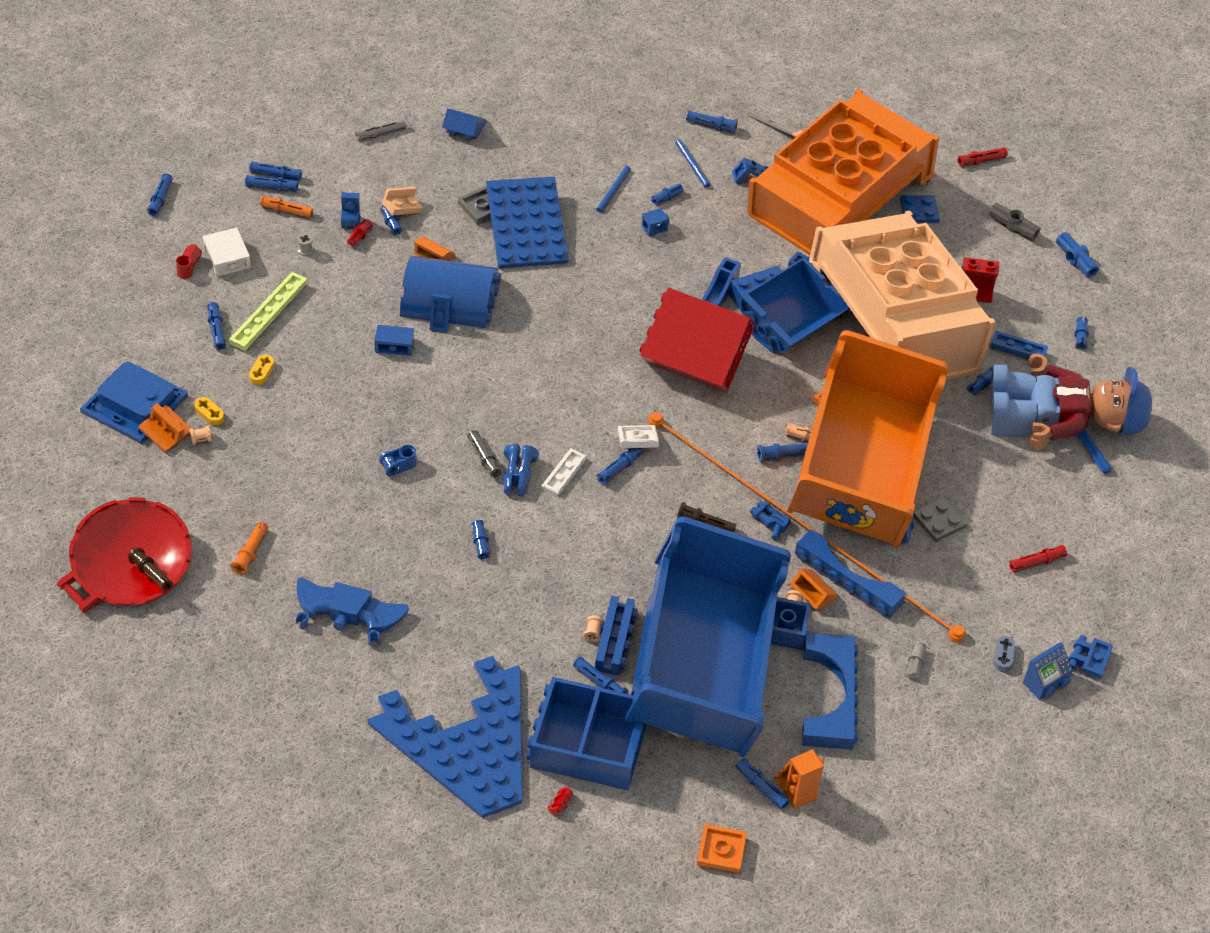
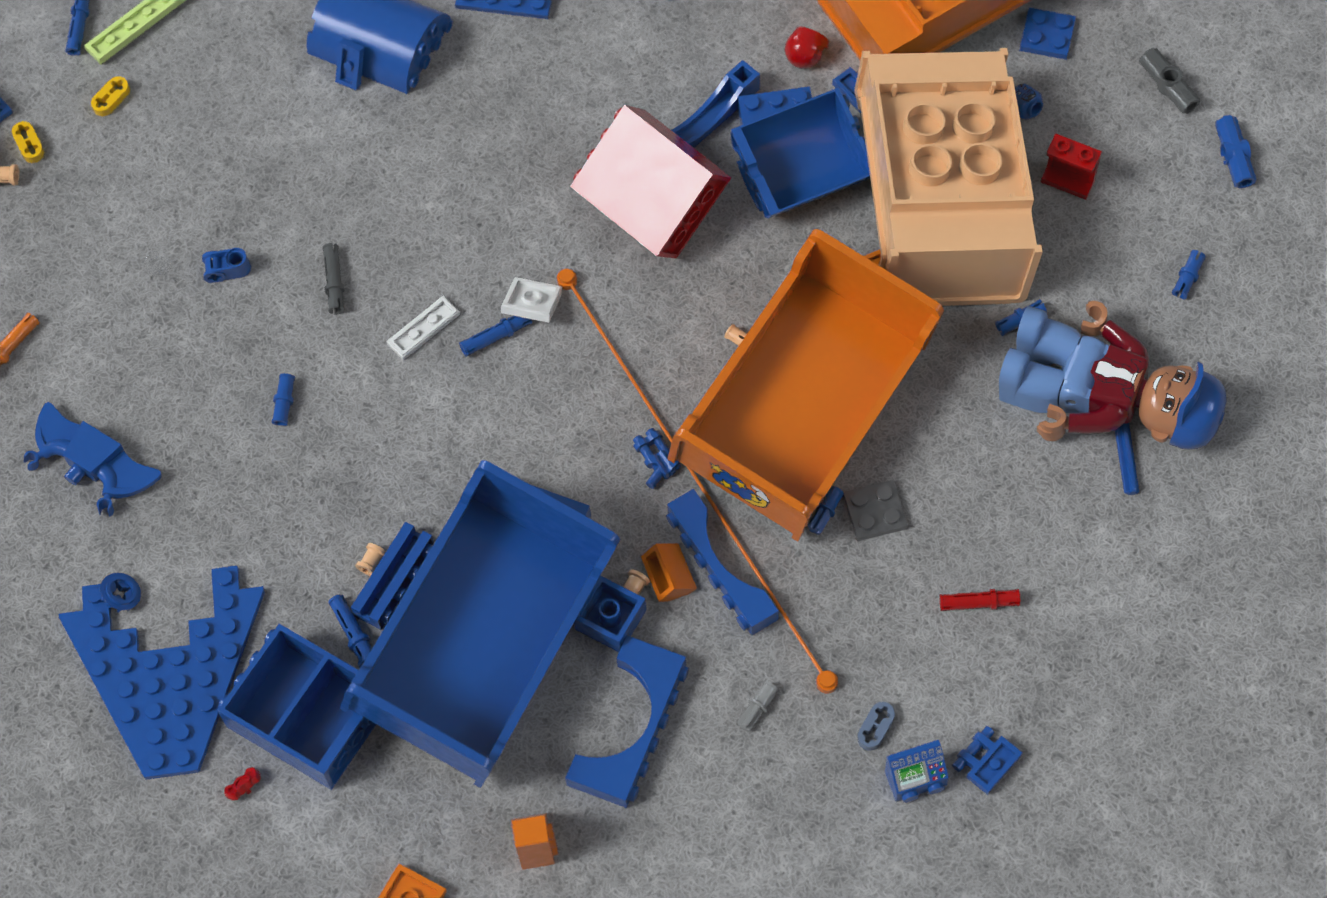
camera: 25 degrees right, 15 degrees up
(394, 340) = (283, 89): blue brick -> none
(405, 687) = (123, 583): none -> blue gear
(521, 476) = (366, 322): blue piece -> none
(699, 515) = (560, 434): dark brown pin -> none
(755, 777) = (487, 812): blue pin -> none
(761, 244) = (805, 47): none -> red helmet
(777, 451) = (700, 361): blue pin -> none
(1016, 345) = (1091, 277): blue plate -> none

